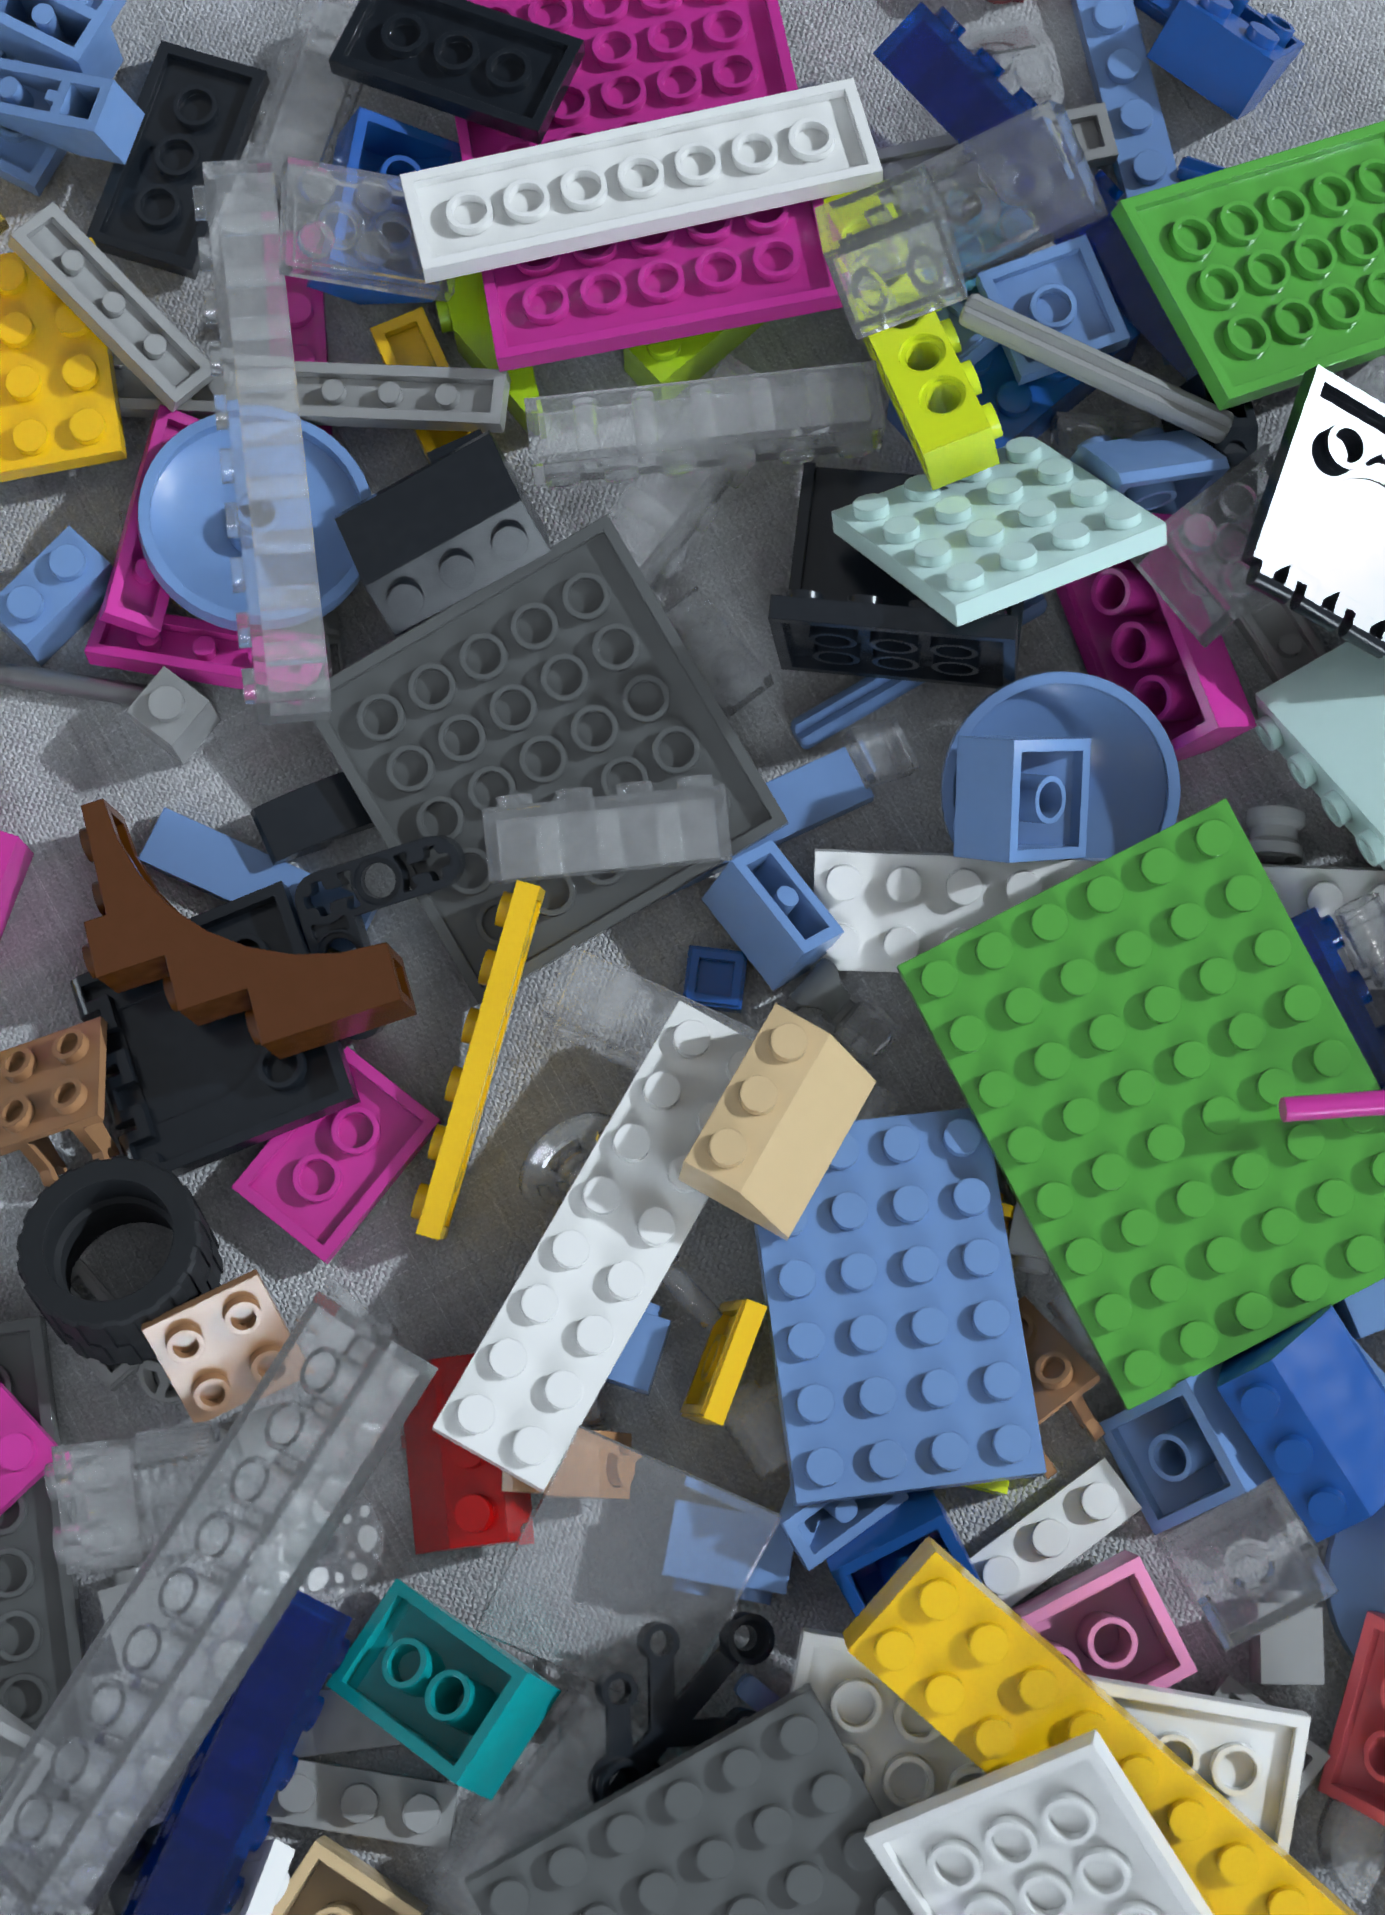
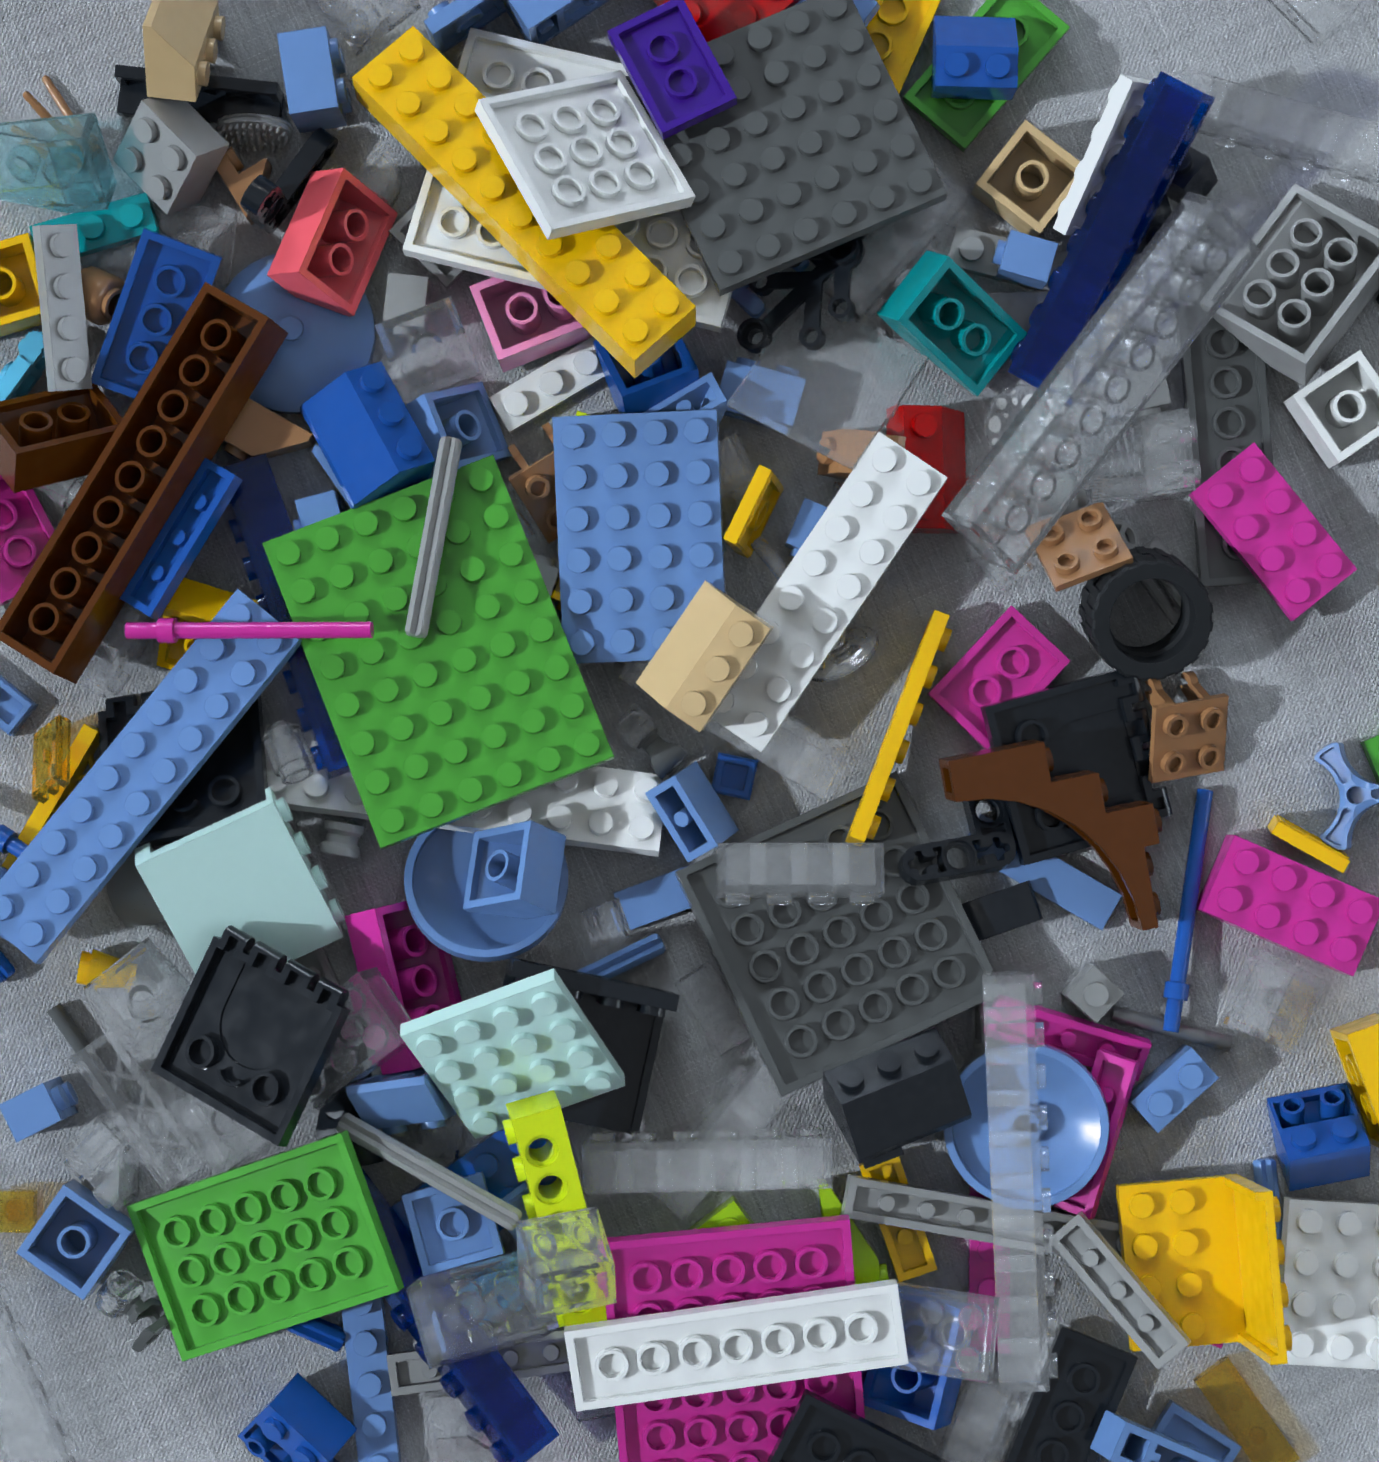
camera: 175 degrees left, 10 degrees up
(52, 733) = (1176, 989): none -> blue bar
(336, 1798) = (1025, 259): none -> medium blue brick
(1205, 1268) = (433, 537): none -> light grey axle

